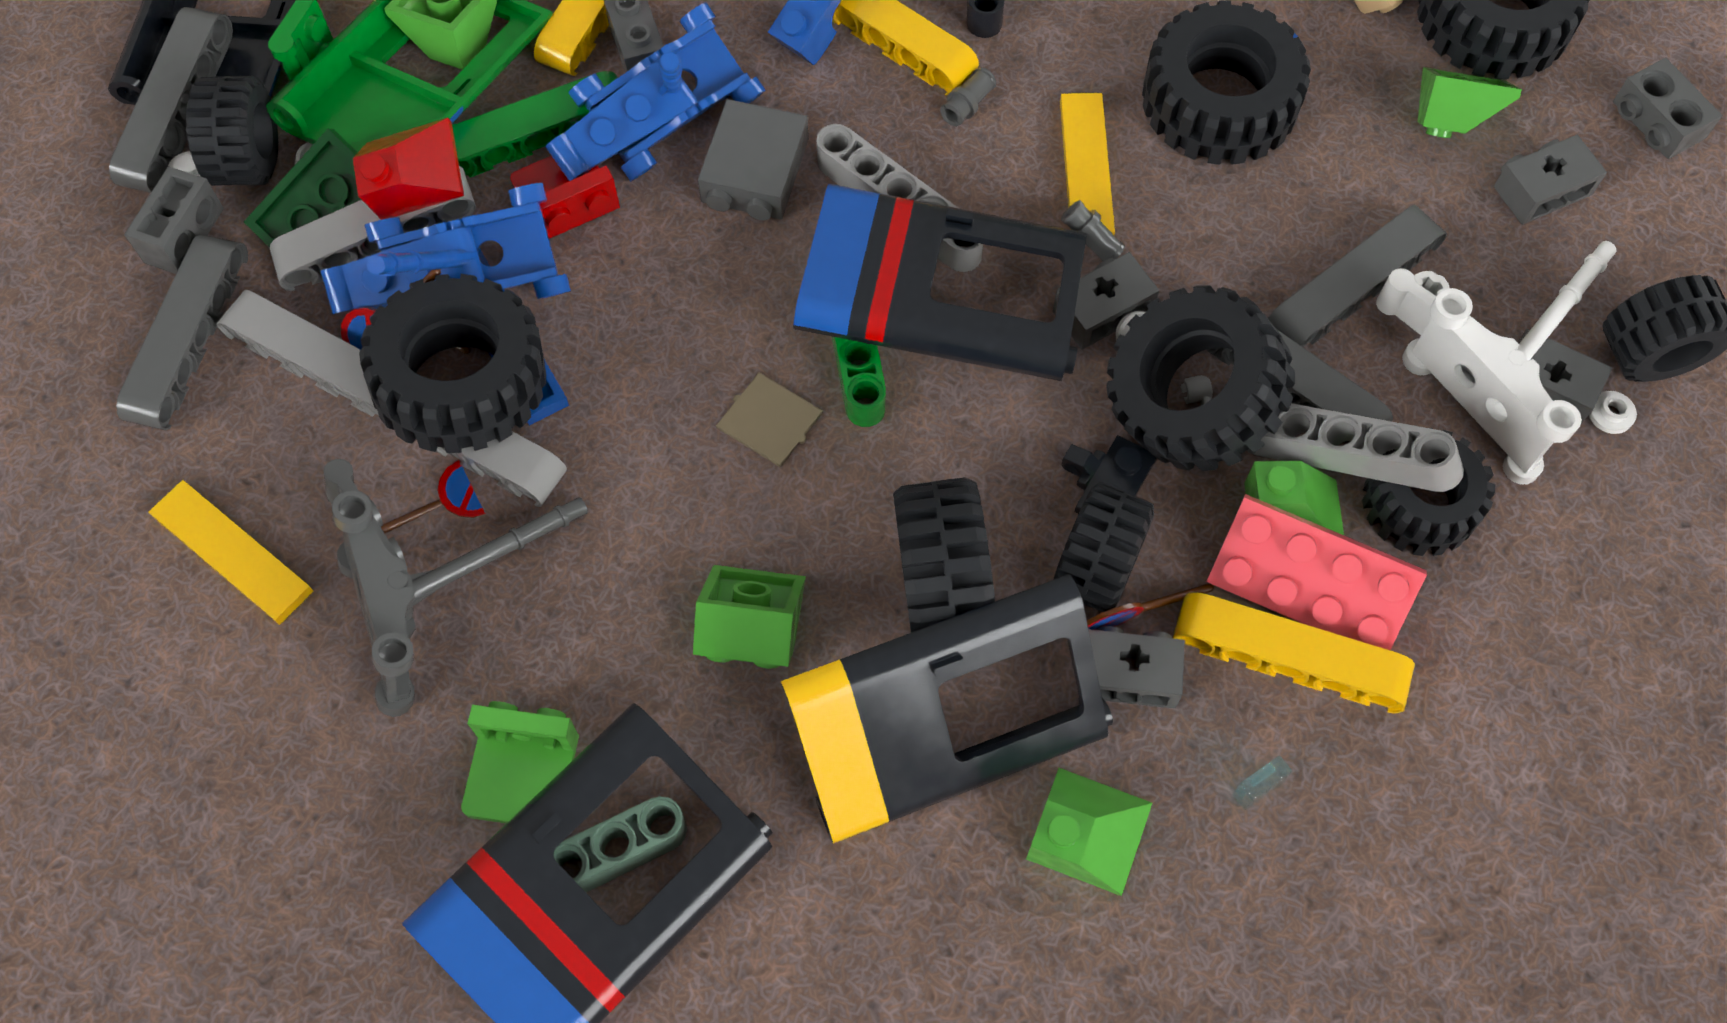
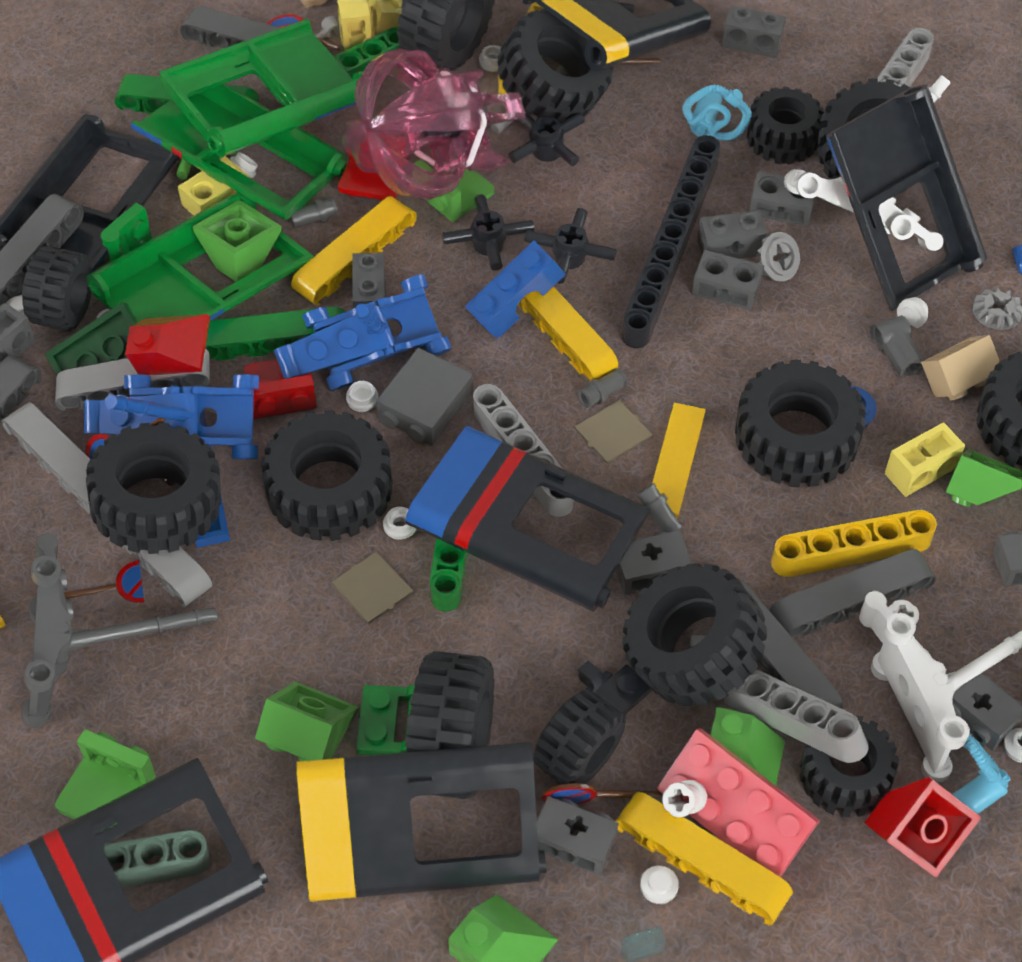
camera: 15 degrees right, 10 degrees down
(656, 243) = (333, 509): none -> black tyre
(673, 179) = (361, 396): none -> white plate
(776, 317) = (397, 532): none -> white plate
(838, 585) = (379, 719): none -> green plate
(998, 148) = (613, 431): none -> dark tan piece
(1247, 598) = (678, 808): none -> white bush
(1251, 700) = (659, 884): none -> white plate
(1335, 216) = (867, 536): none -> yellow beam
(1385, 91) = (924, 459): none -> light yellow brick
(1540, 539) = (923, 823): none -> red slope
(1592, 482) = (987, 786): none -> medium azure piece

